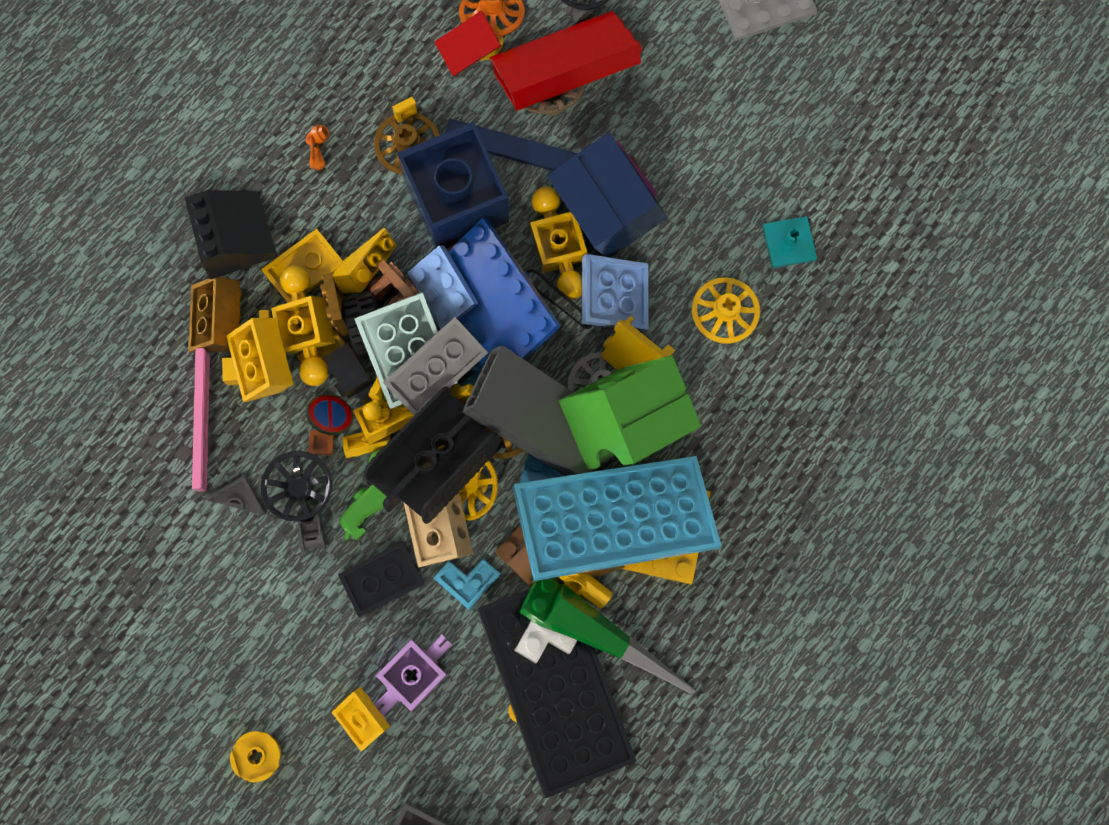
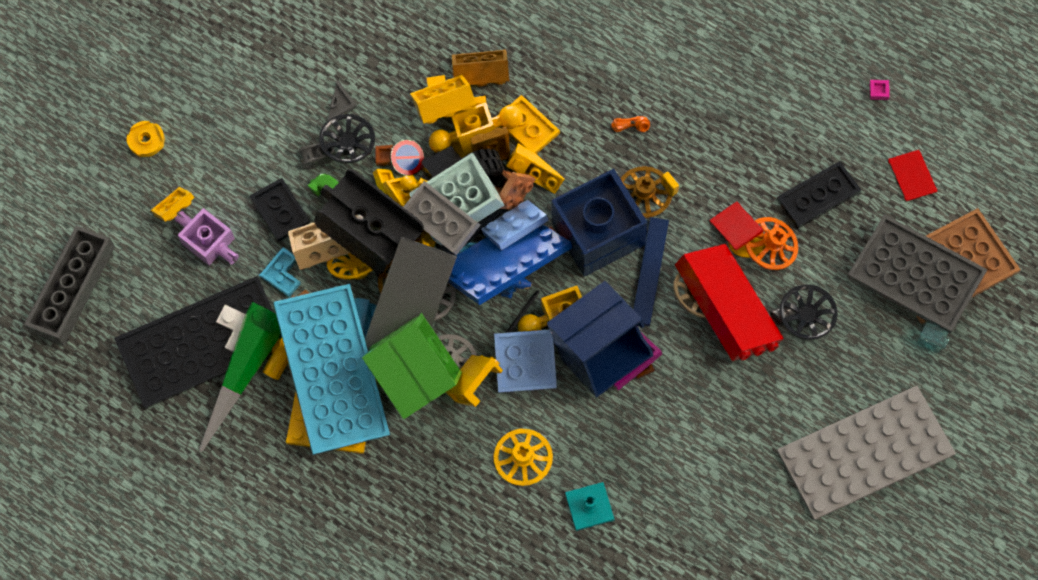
camera: 95 degrees right, 10 degrees down
(201, 417) = (396, 68): bright pink tile -> none
(229, 230) = (547, 65): black slope -> none

